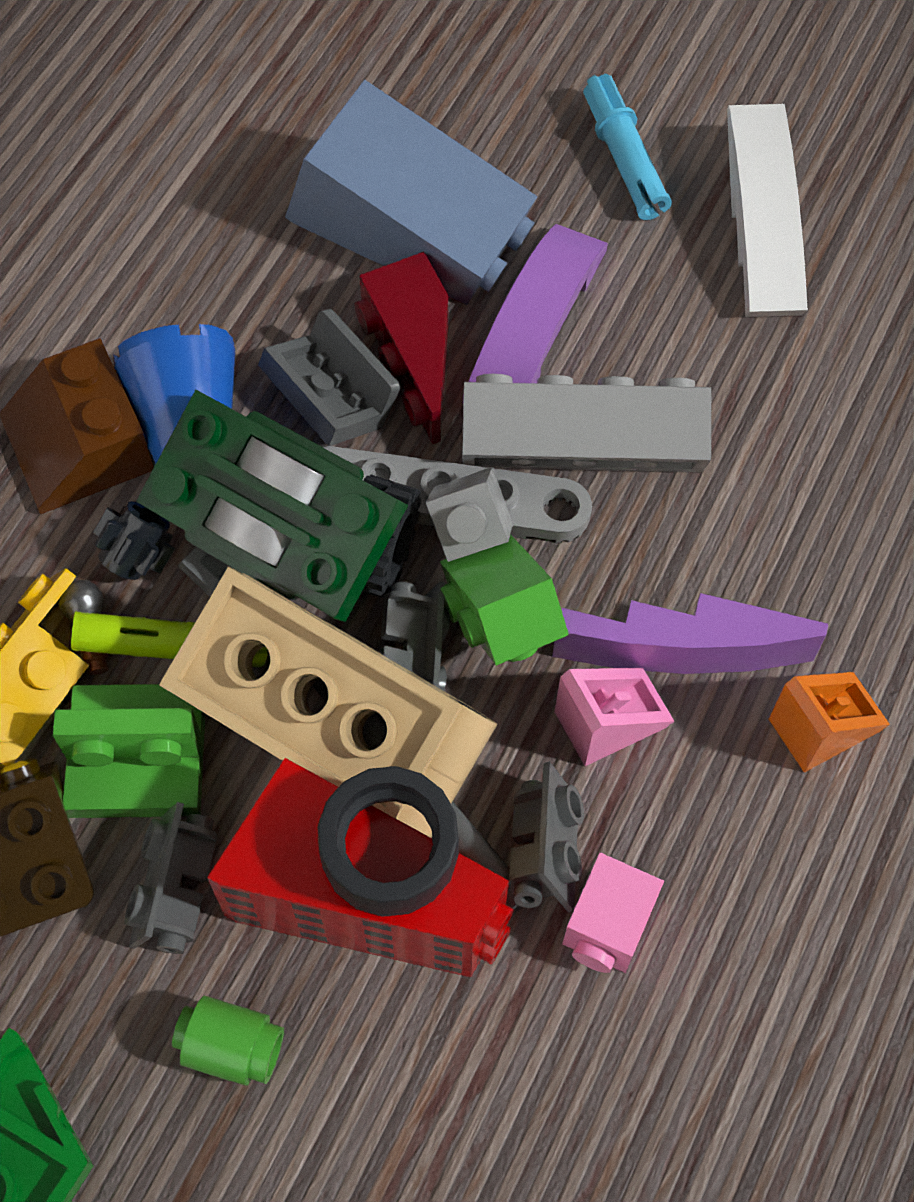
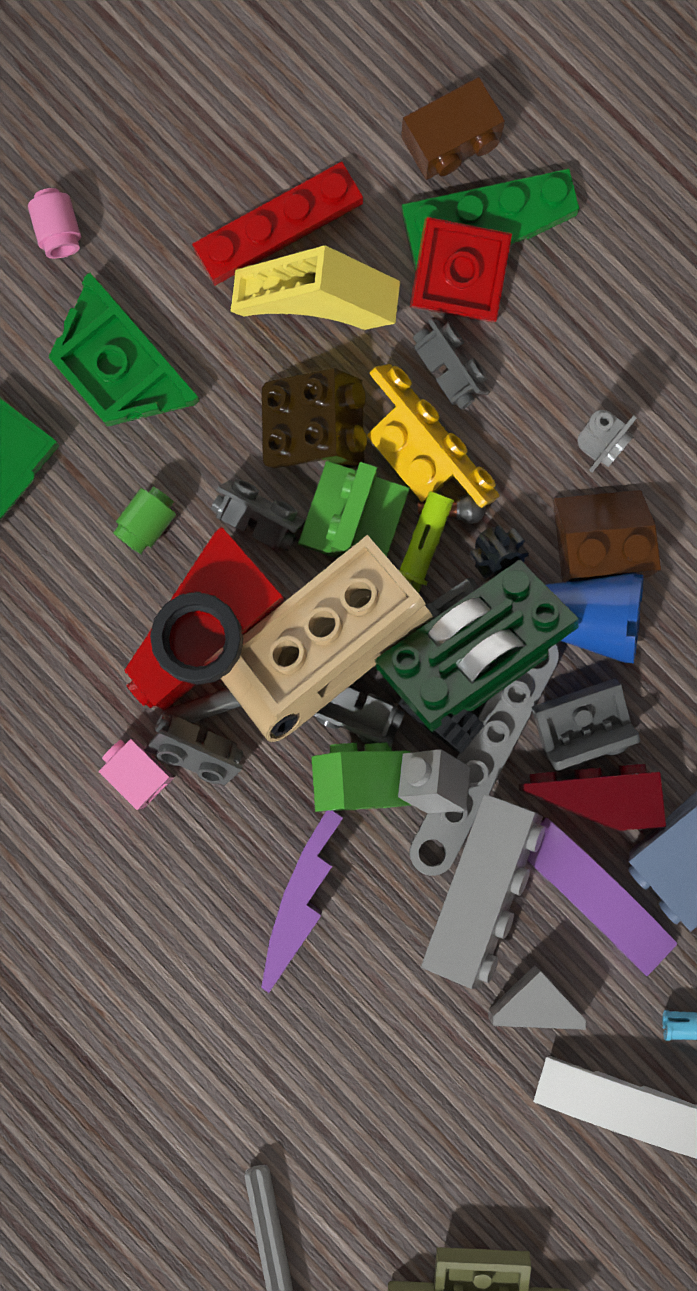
camera: 110 degrees right, 20 degrees up
(608, 710) = (269, 830): bright pink slope -> none
(695, 339) = (535, 1004): none -> light grey slope
(824, 716) = (214, 971): orange slope -> none

